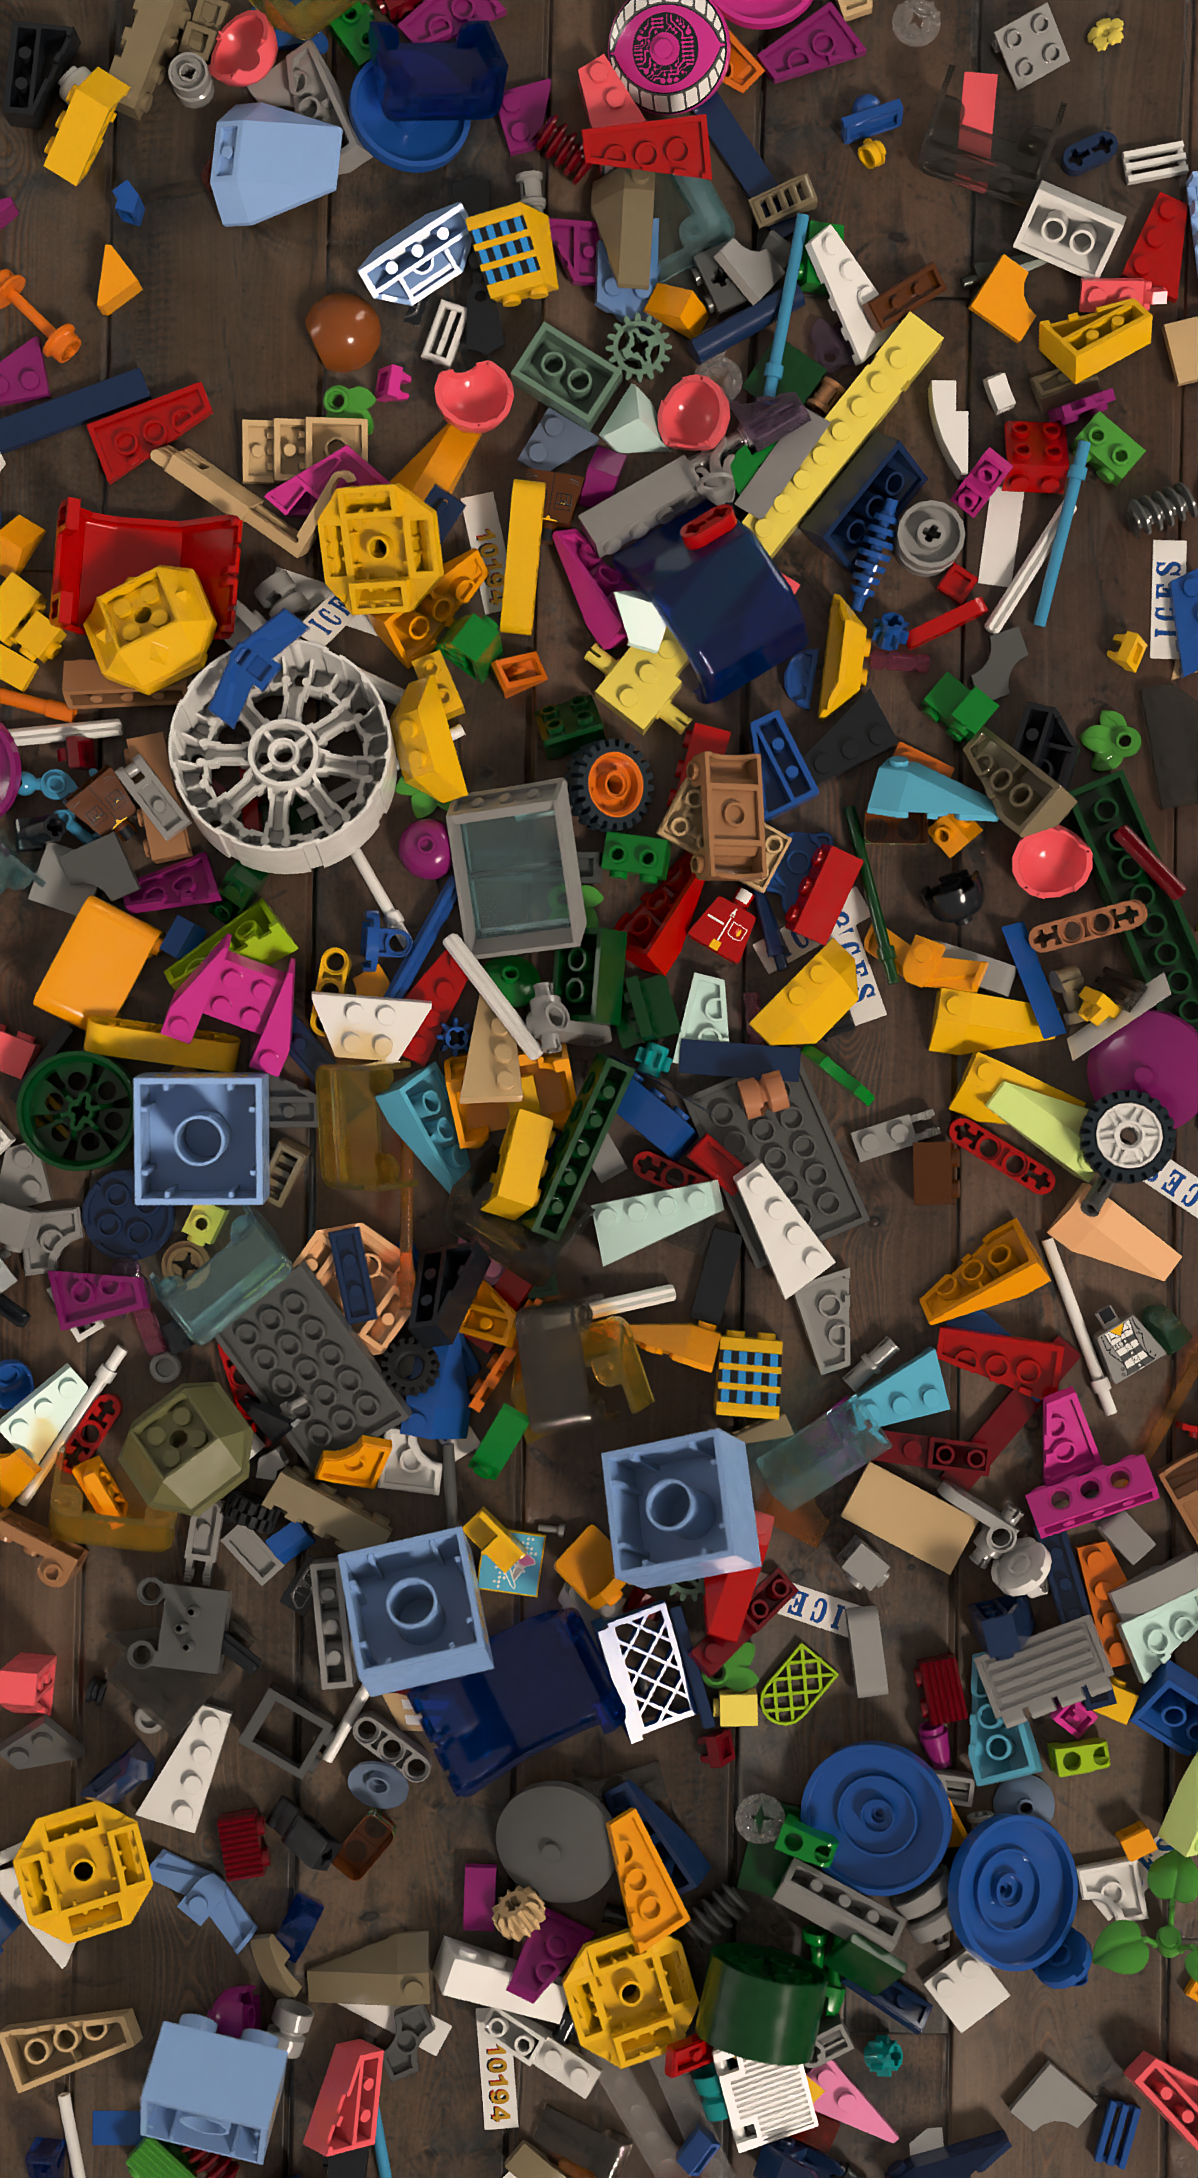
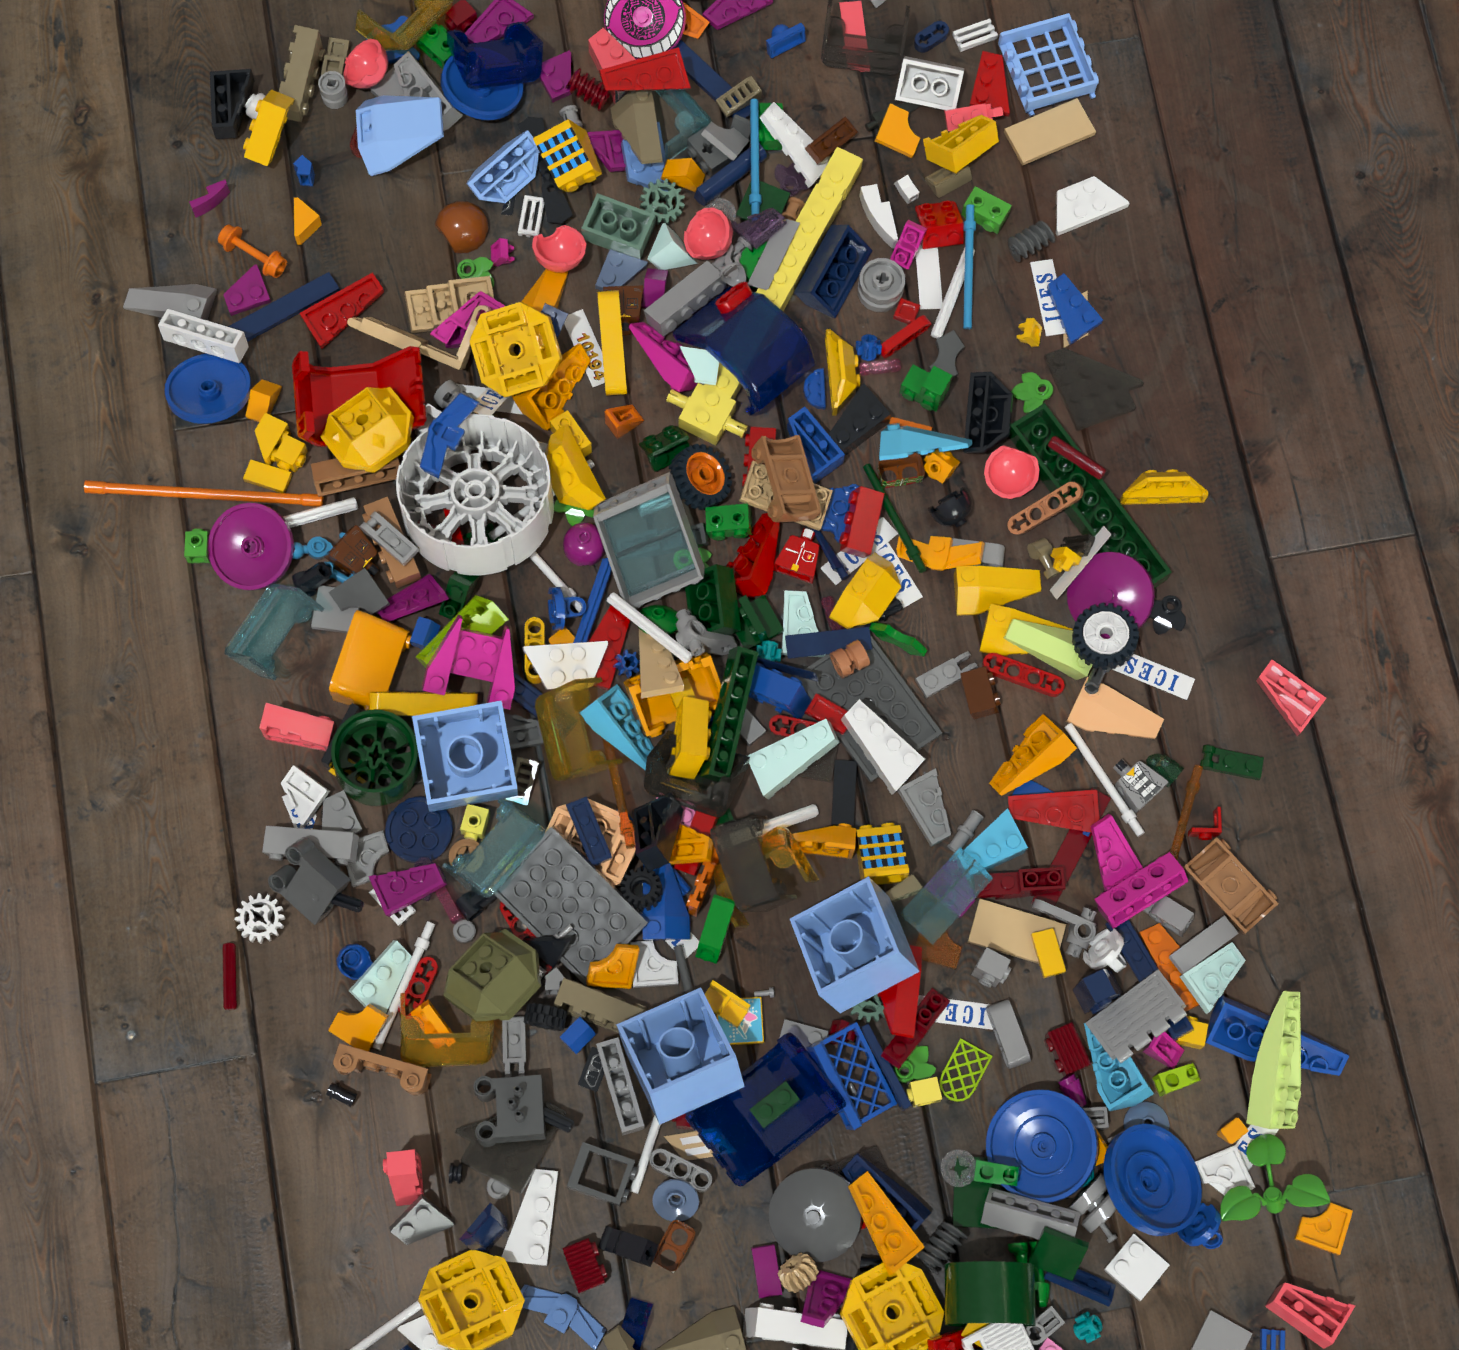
camera: 15 degrees left, 15 degrees down
(78, 753) = (329, 525): dark red tile -> none
(252, 1553) = (551, 1051): light grey tile -> none
(472, 645) = (591, 401): green wedge -> none
(533, 1689) = (775, 1105): none -> dark green brick
(590, 1568) = (801, 1010): light orange bracket -> none
(719, 1748) = (917, 1123): dark red tile -> none
(872, 153) = (790, 59): yellow plate -> none
(886, 518) = (847, 300): blue piece -> none
(945, 1556) = (1048, 953): none -> yellow tile
(1018, 789) = (977, 423): dark tan wedge -> none
(1033, 980) = (1017, 553): blue sticker -> none
(1094, 403) = (954, 191): magenta wing -> none

